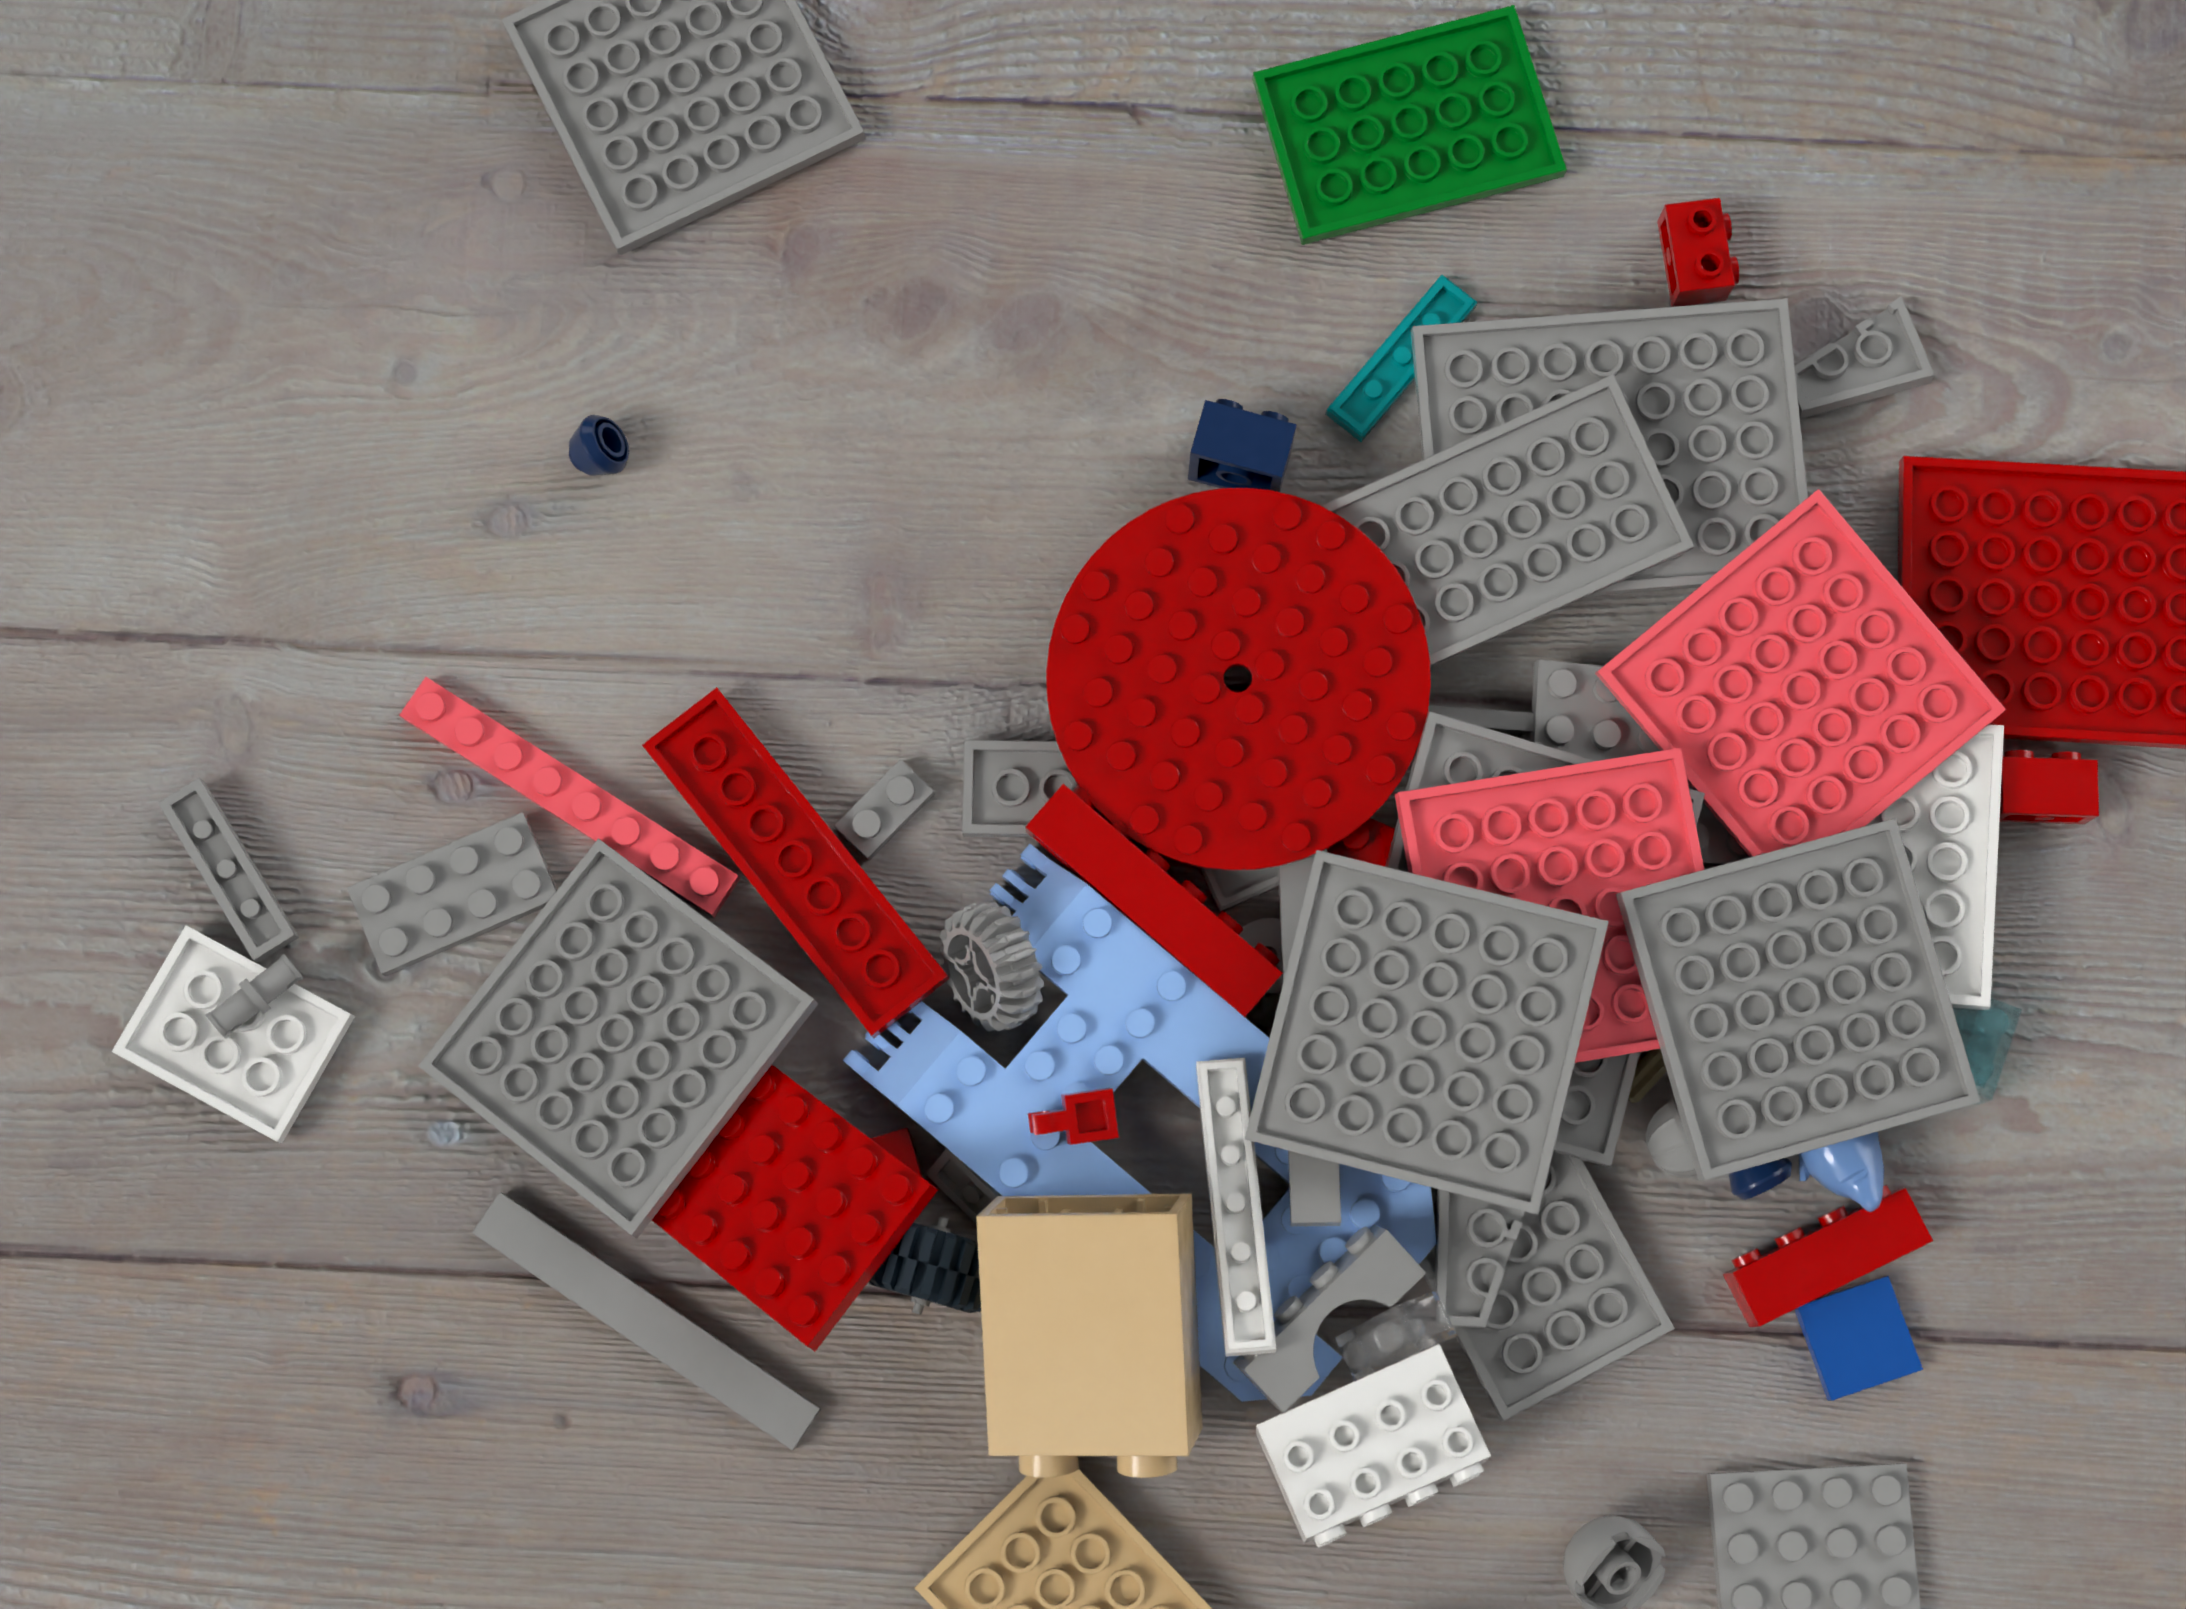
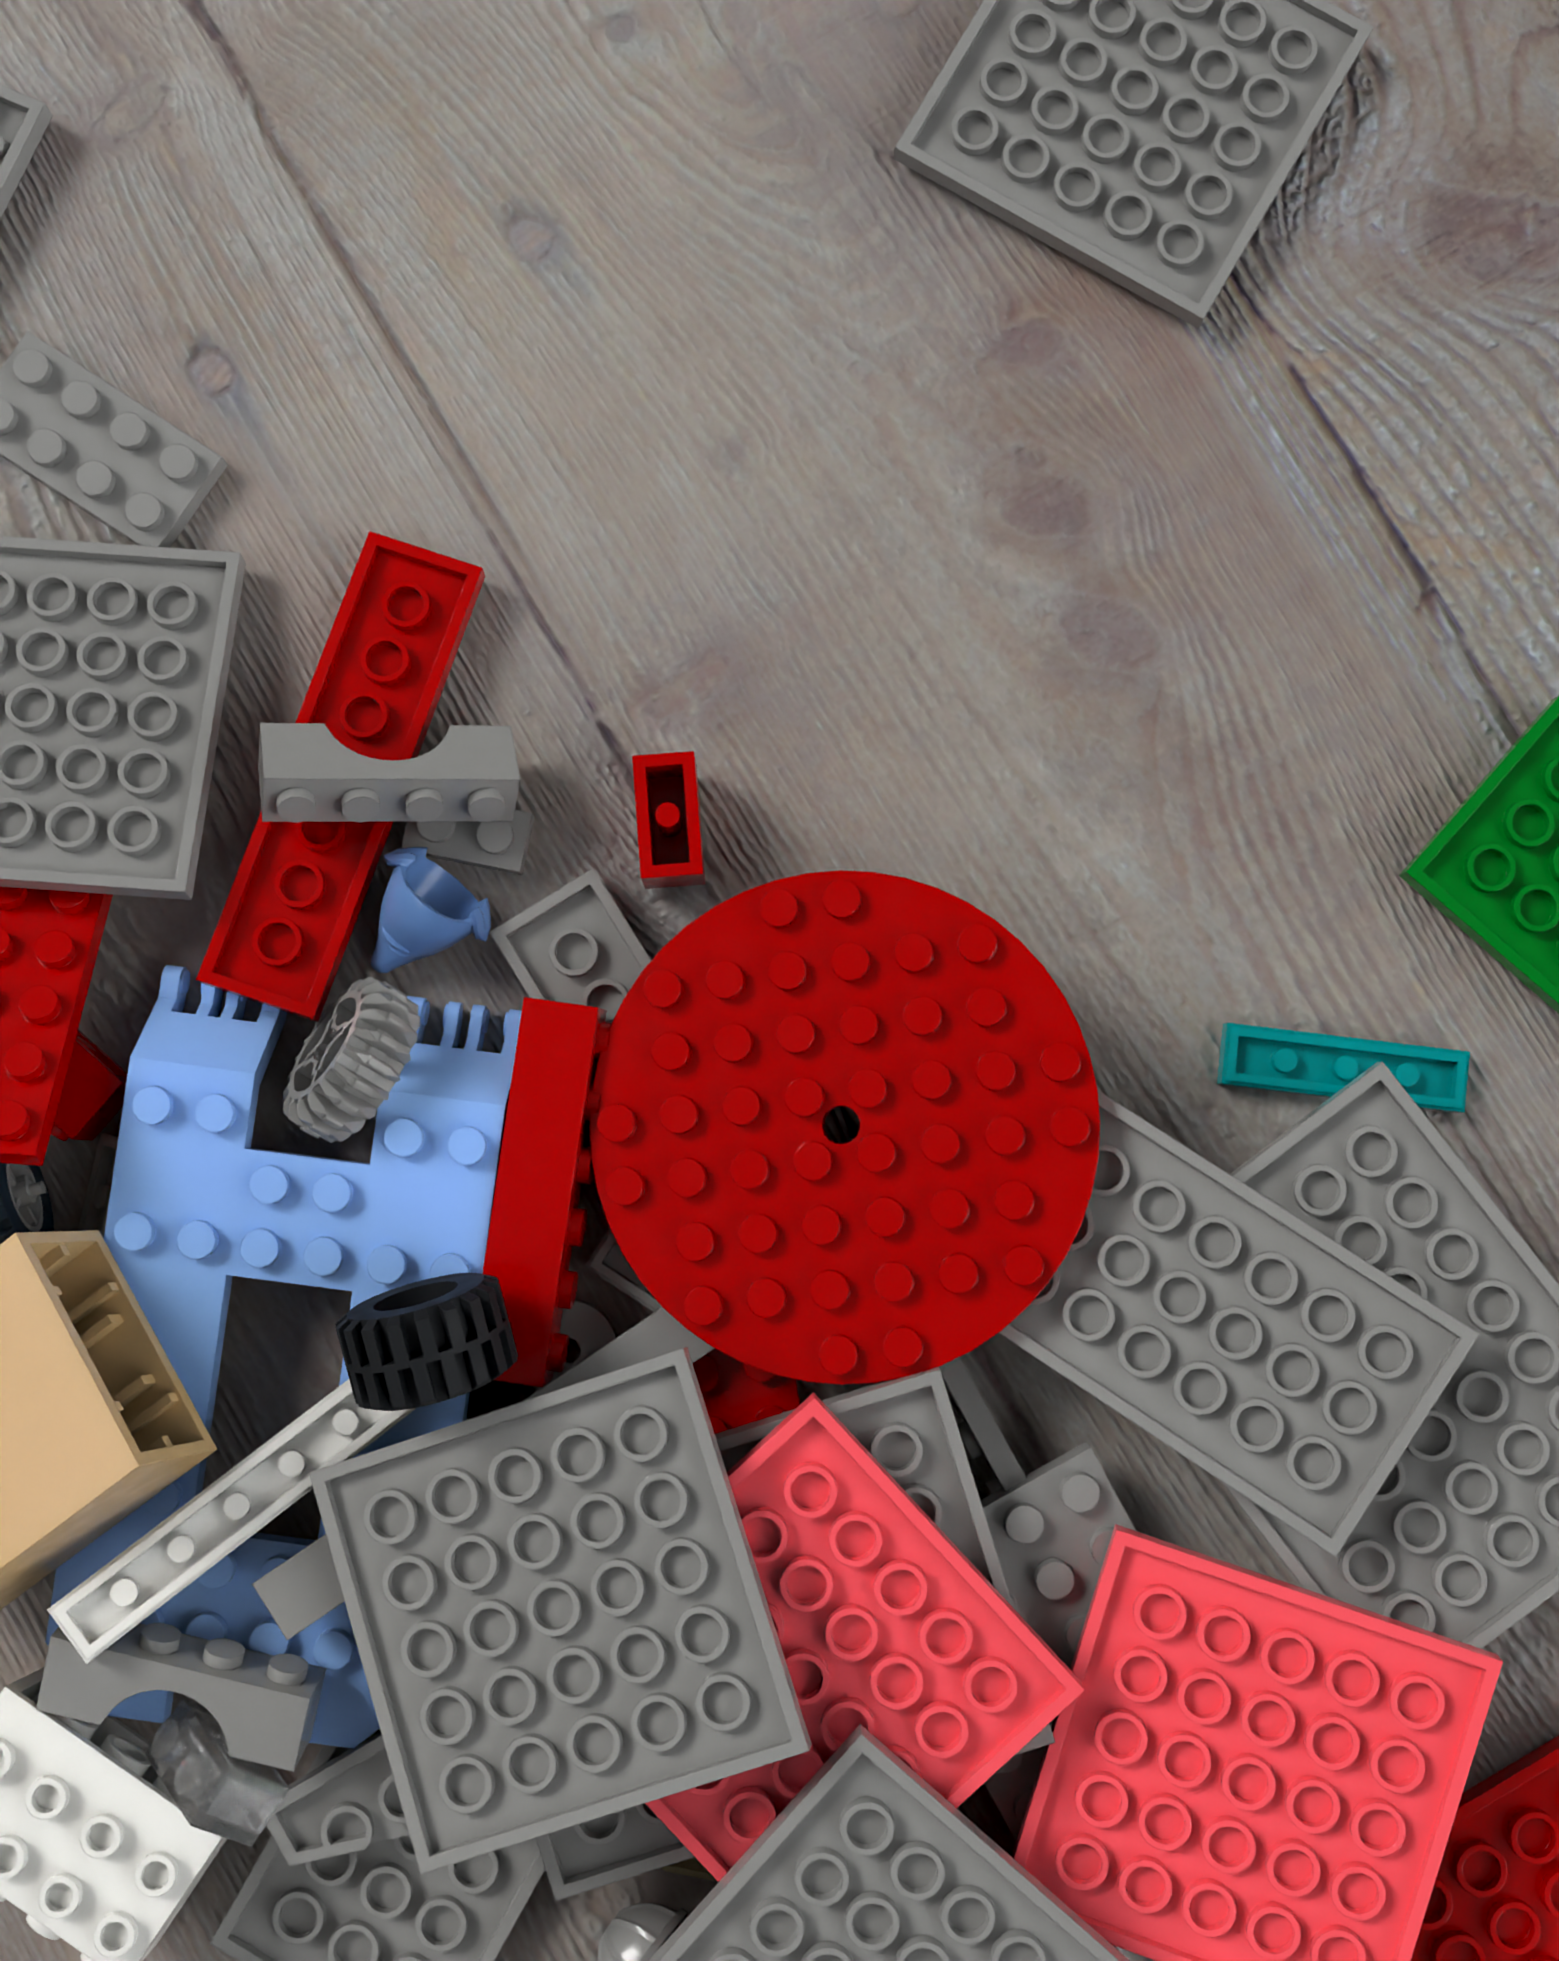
camera: 55 degrees right, 5 degrees up
(569, 796) = (272, 494): coral plate -> none
(598, 447) = (665, 273): dark blue cone -> none
(792, 871) = (318, 779): none -> light grey arch
(921, 868) = (424, 911): none -> medium blue hat
(967, 670) = (668, 820): none -> red brick
(1084, 1117) = (234, 1273): red plate -> none
(1209, 1009) = (426, 1341): none -> black tyre
(1240, 447) = (1115, 958): dark blue brick -> none

